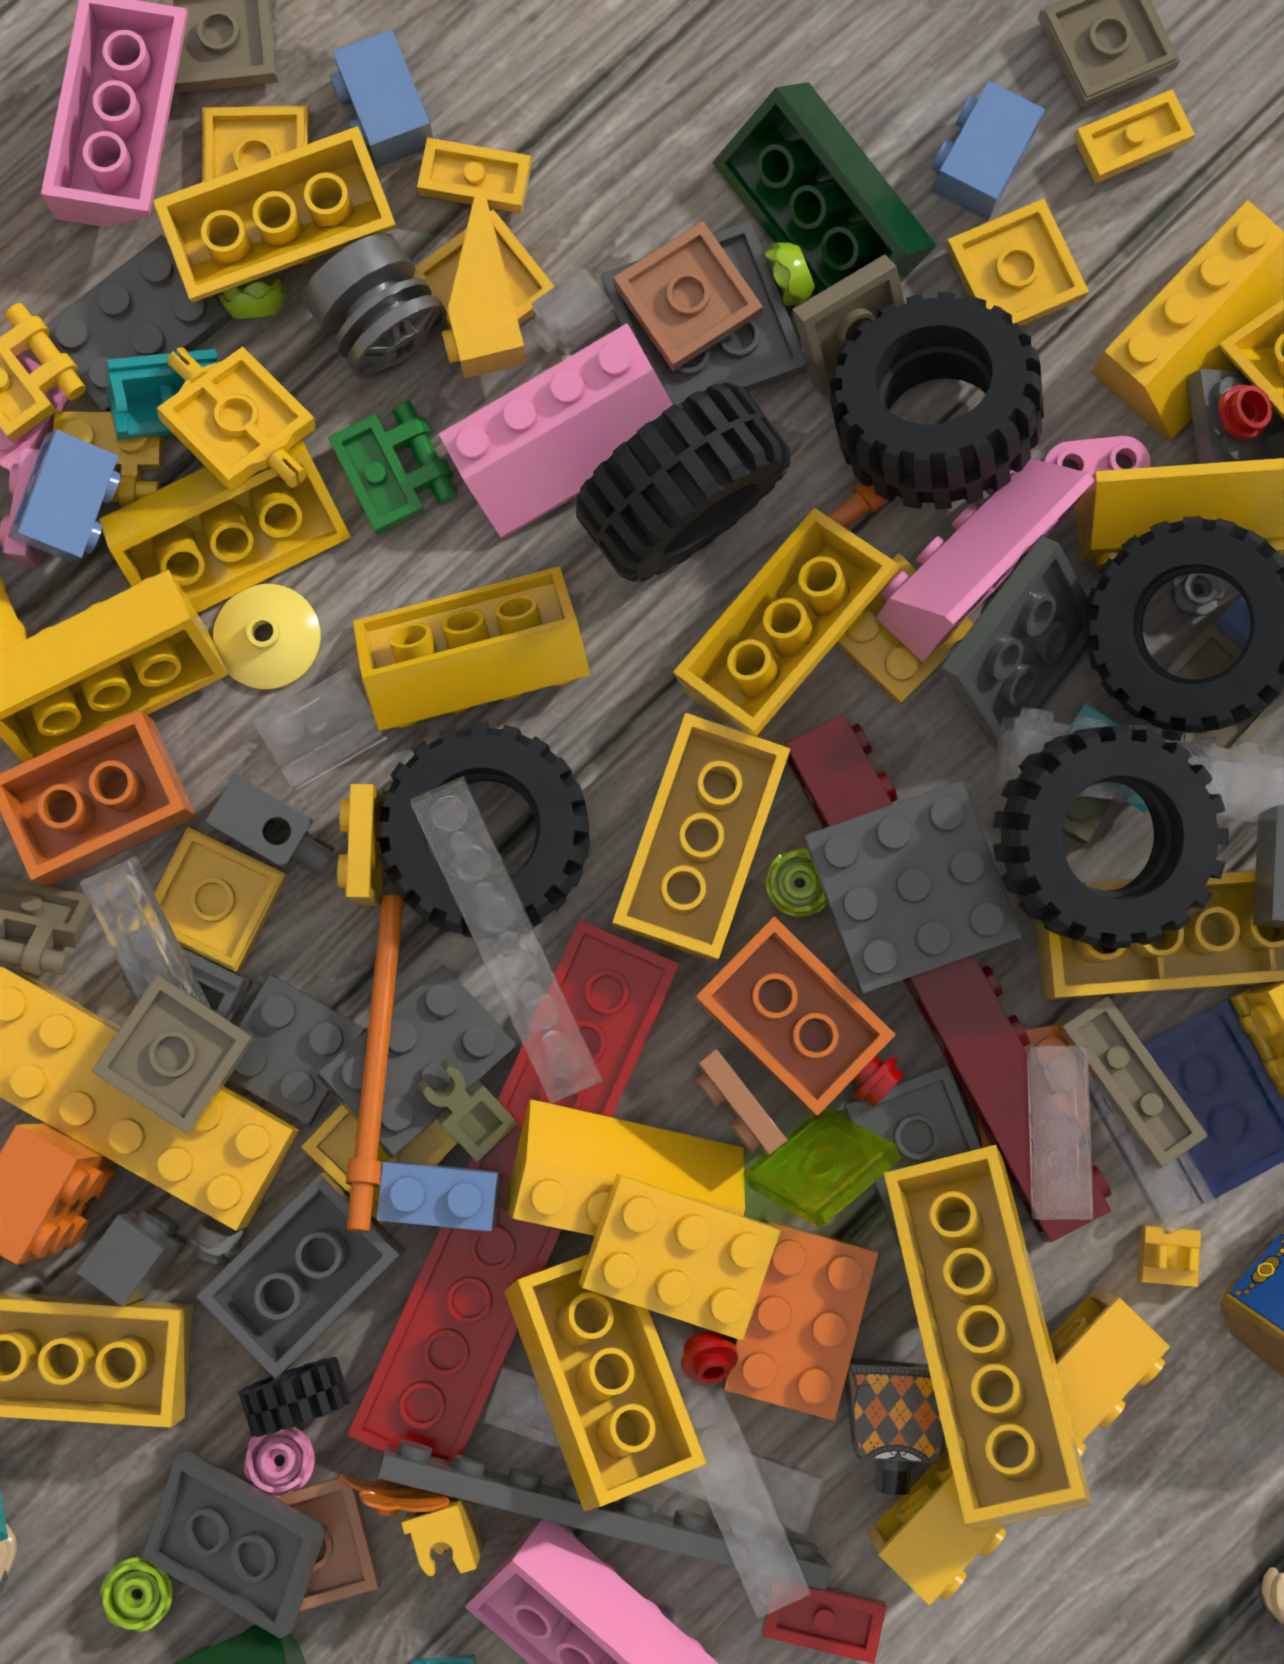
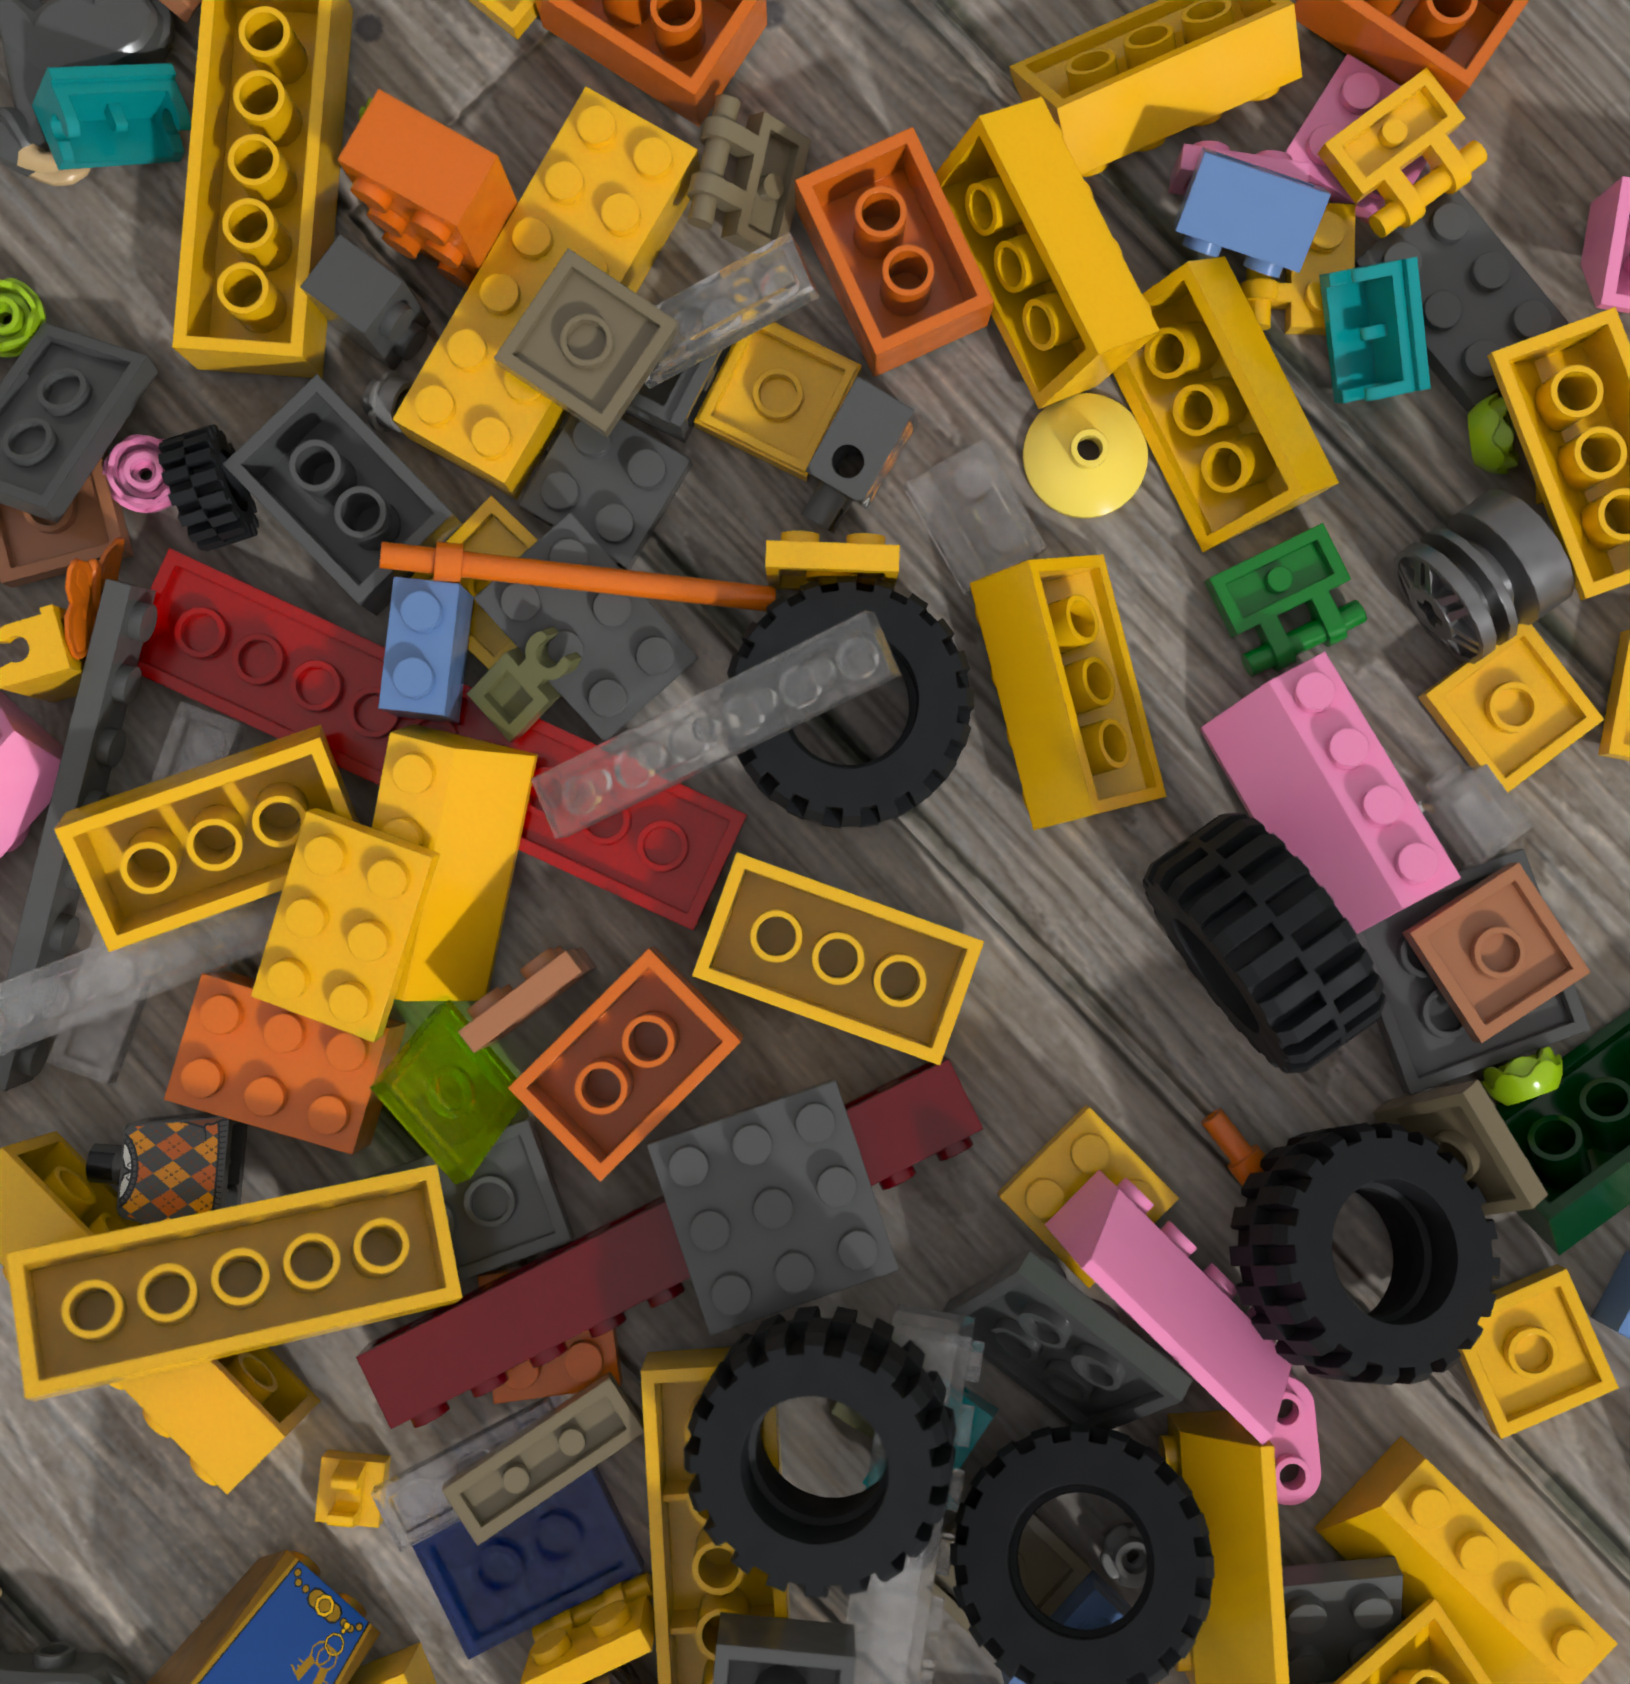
camera: 90 degrees right, 5 degrees up
(236, 418) = (1344, 410): yellow plate -> none
(481, 306) = (1483, 702): yellow slope -> none
(708, 1357) = (234, 956): red plate -> none
(781, 886) = (780, 1051): lime plate -> none
(783, 623) = (1092, 1062): yellow slope -> none
(877, 1080) = (549, 1159): red plate -> none
(1060, 1133) = (479, 1372): clear plate -> none
(1244, 411) = (1349, 1630): red plate -> none

